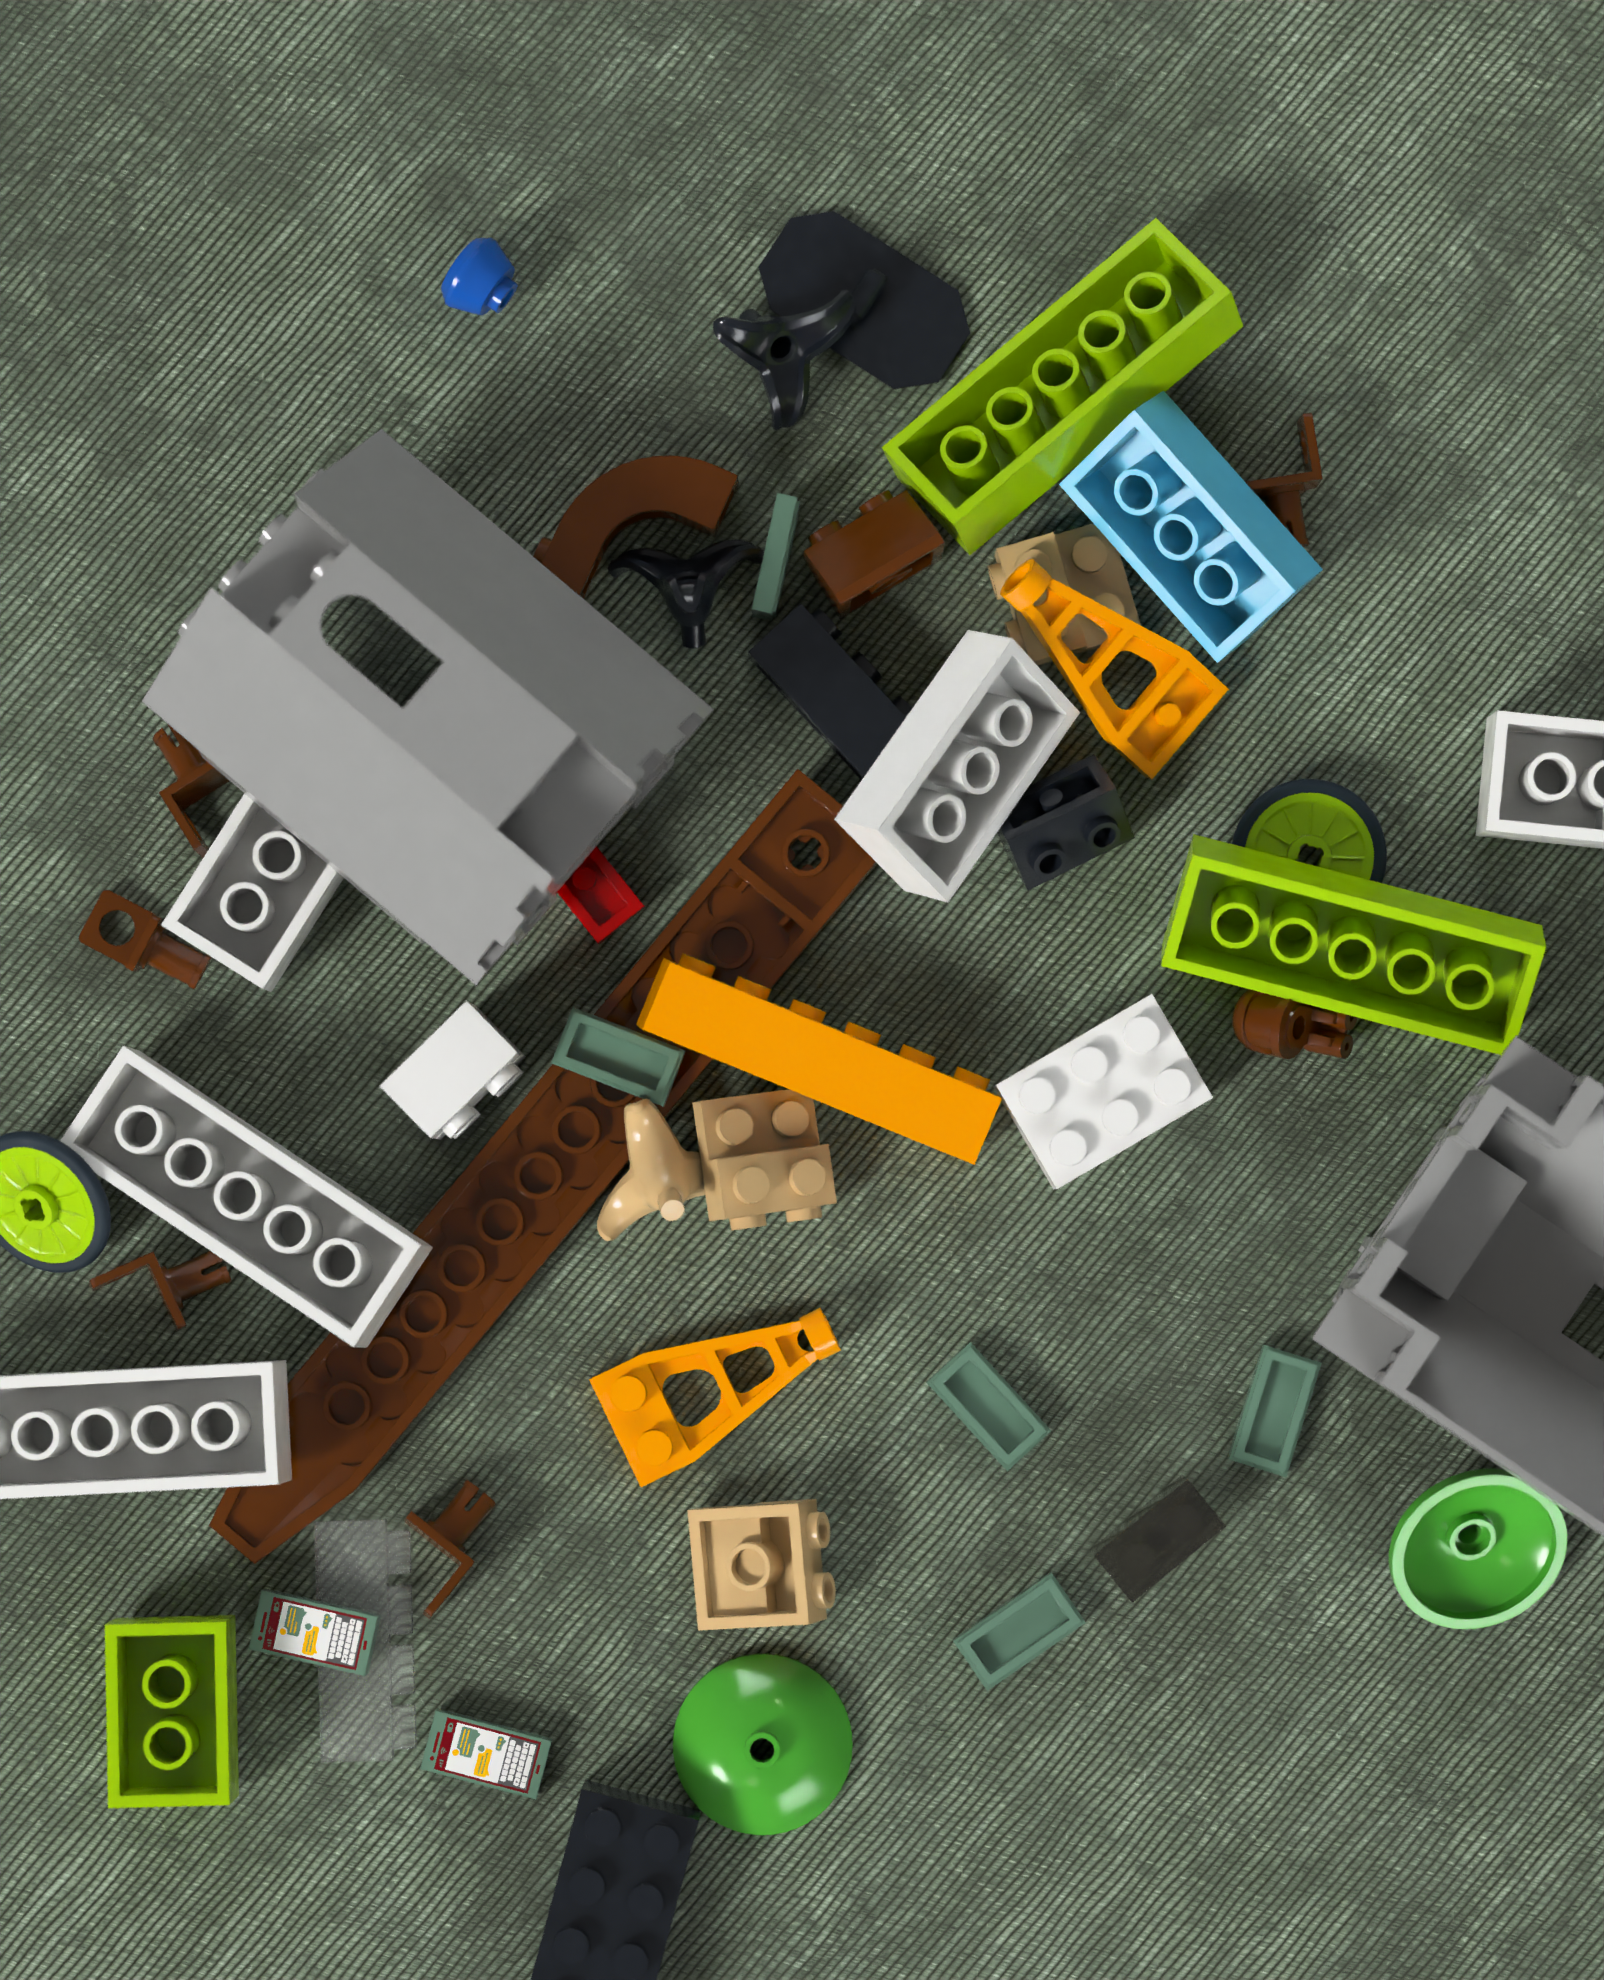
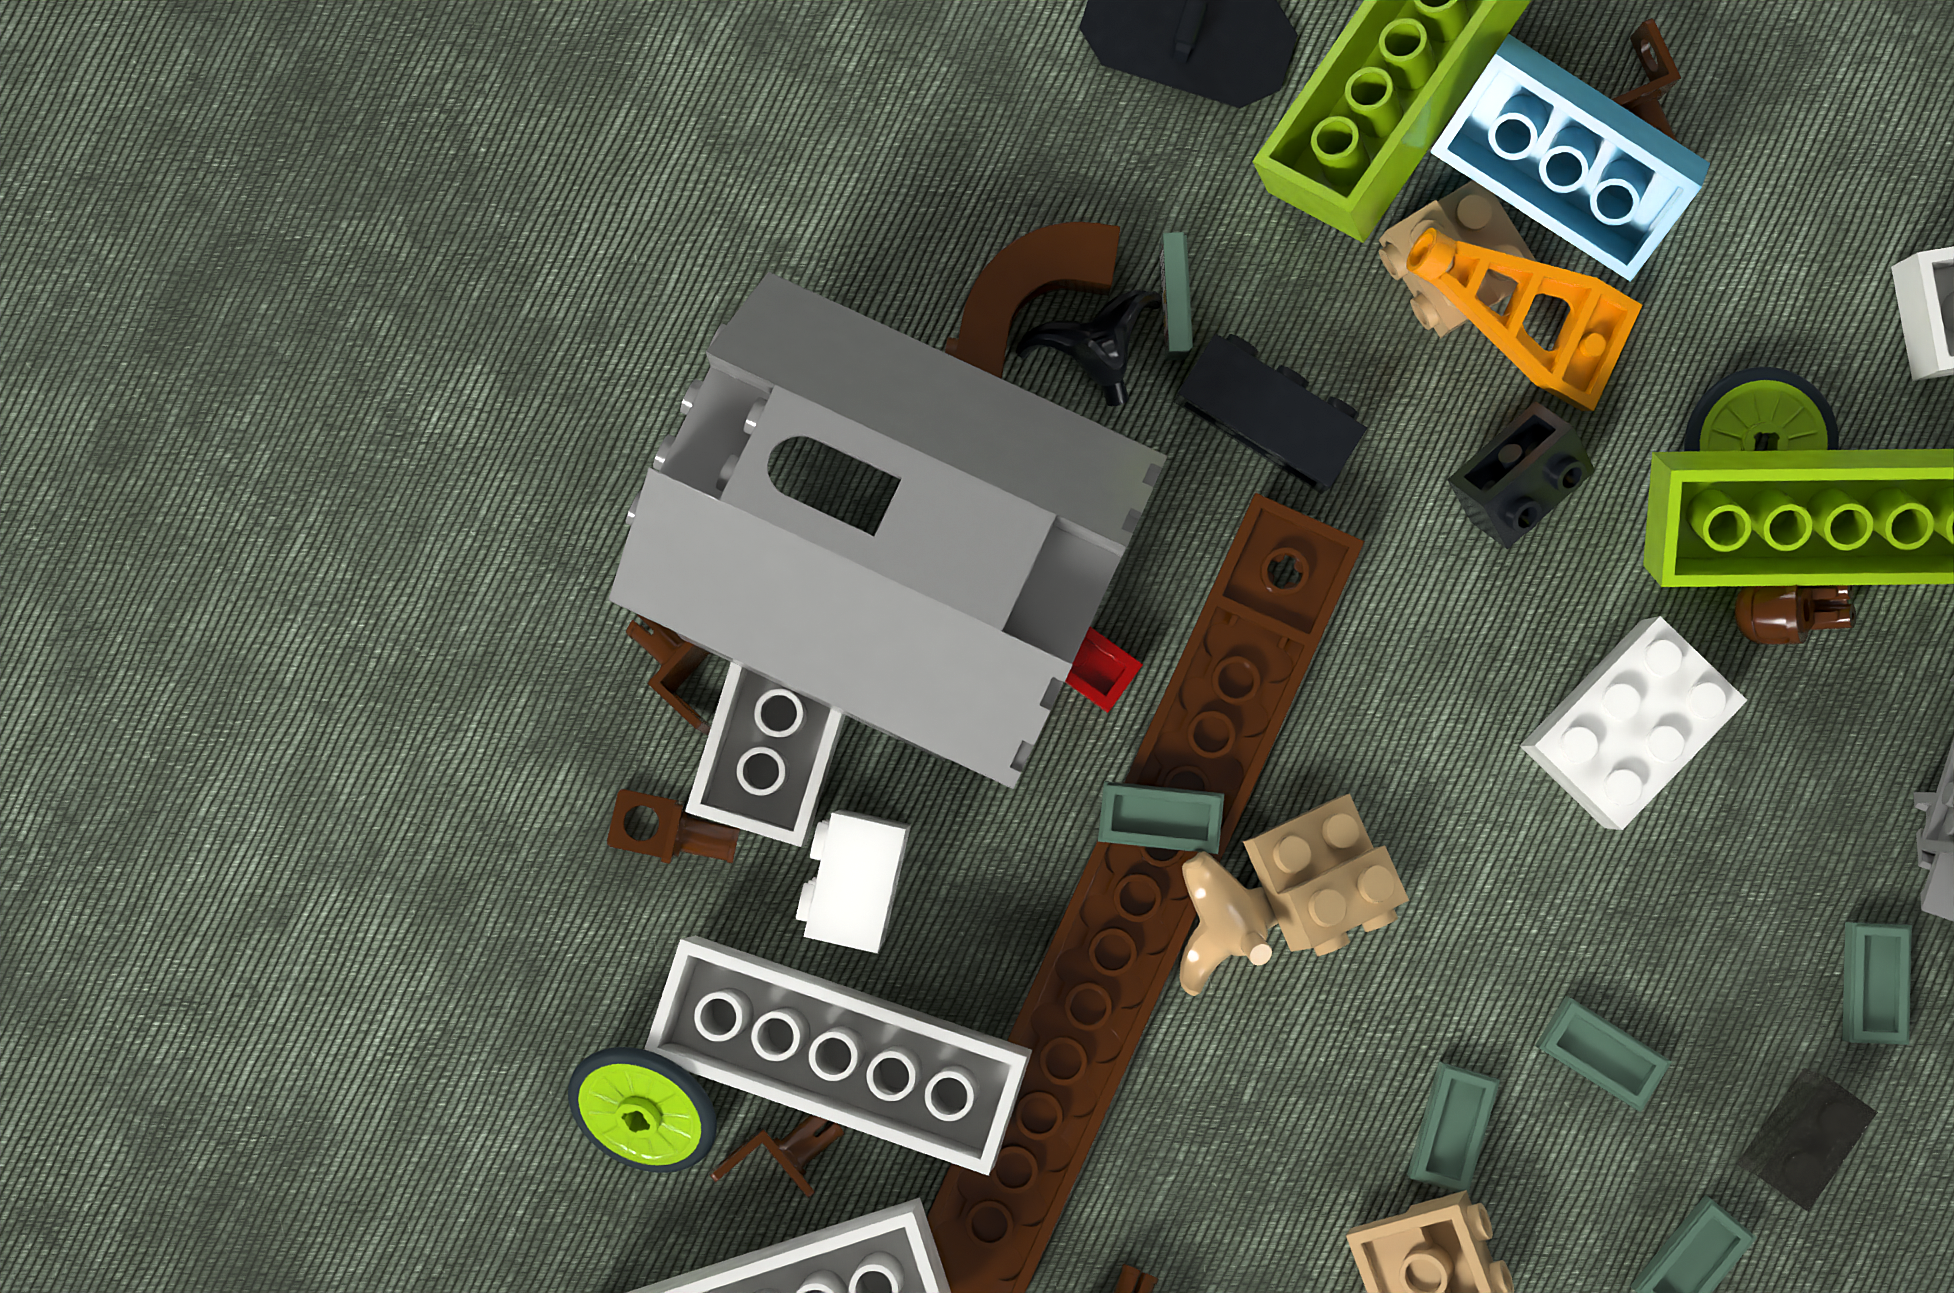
camera: 15 degrees left, 0 degrees up
(305, 1032) = (855, 879): none -> white brick
(454, 1073) = (1007, 878): white piece -> none
(479, 279) = (819, 108): blue cone -> none
(641, 1413) = (1276, 1156): light orange plate -> none
(784, 348) = (1130, 94): black piece -> none
(819, 1060) = (1356, 768): light orange brick -> none
(823, 1437) = (1453, 1127): none -> sand green tile
(873, 551) = (1269, 264): reddish brown slope -> none
(957, 765) = (1414, 446): white brick -> none

